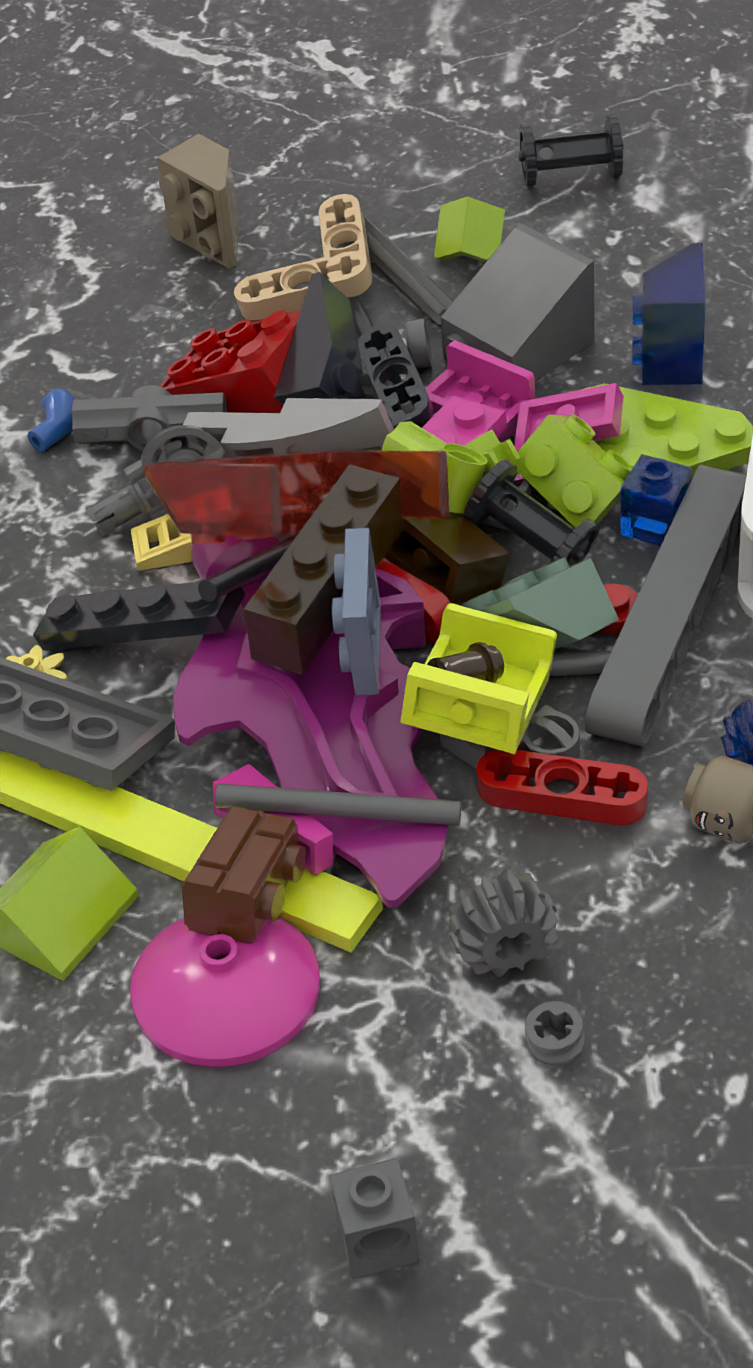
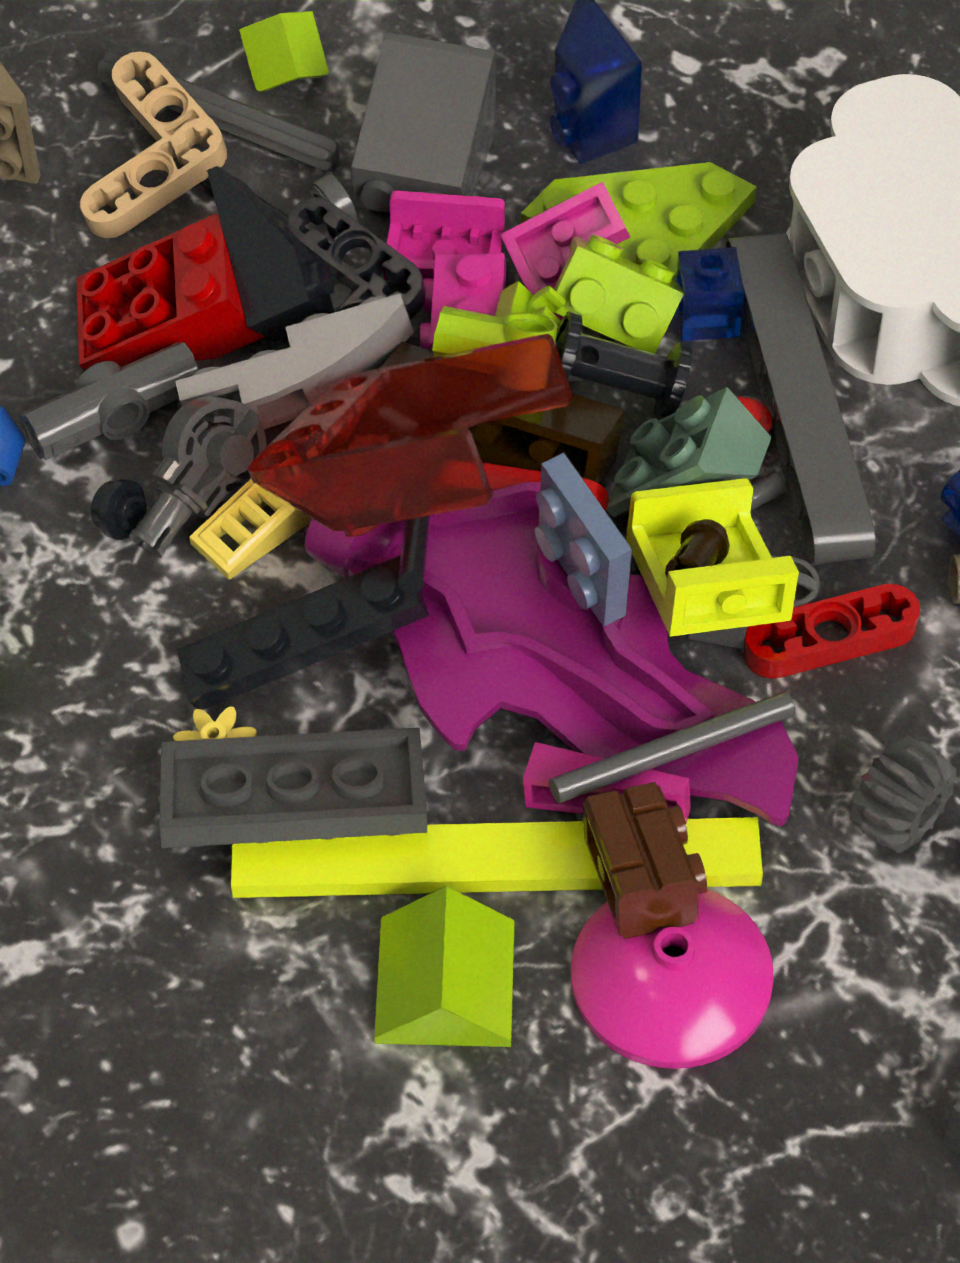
camera: 35 degrees left, 10 degrees up
(86, 480) = (118, 508): none -> black plate
(293, 606) = (503, 531): dark brown brick -> none

